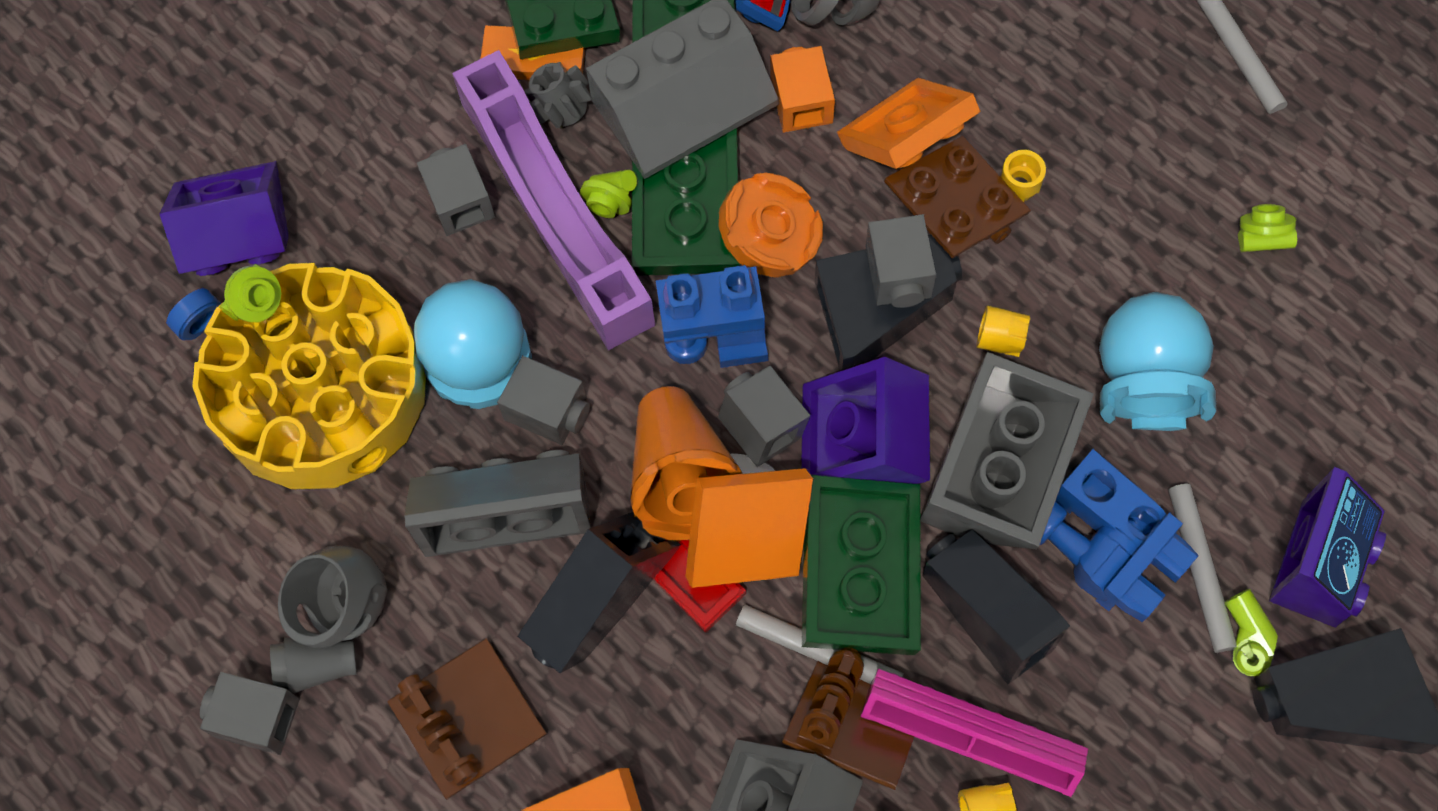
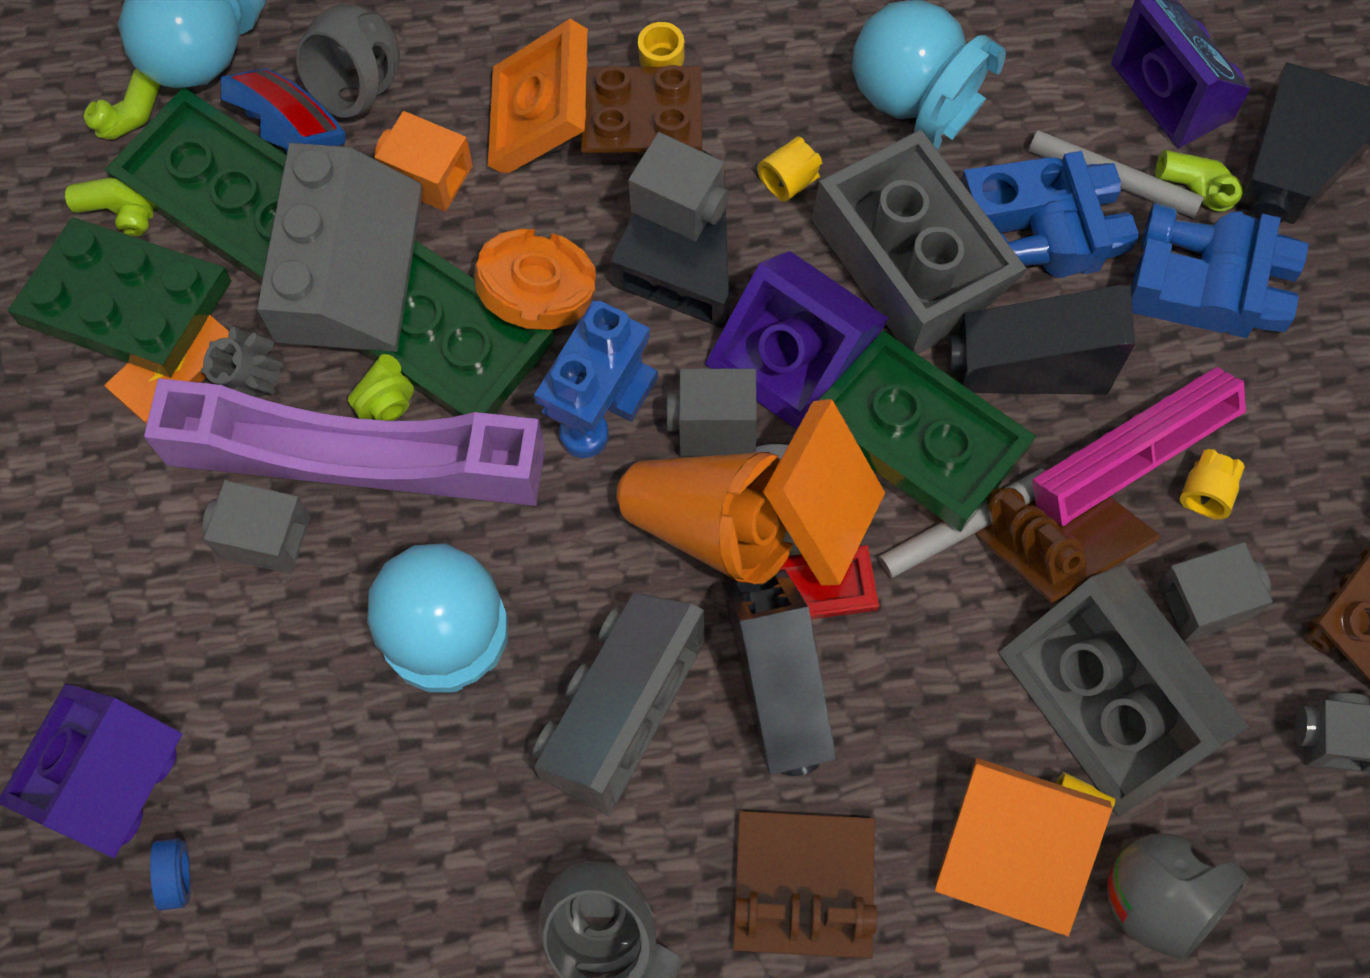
camera: 55 degrees left, 0 degrees up
(251, 294) = (221, 787): lime plate -> none
(321, 426) = (295, 746): yellow brick -> none
(544, 401) = (547, 593): dark grey brick -> none
(1172, 713) = (1230, 280): none -> blue hips

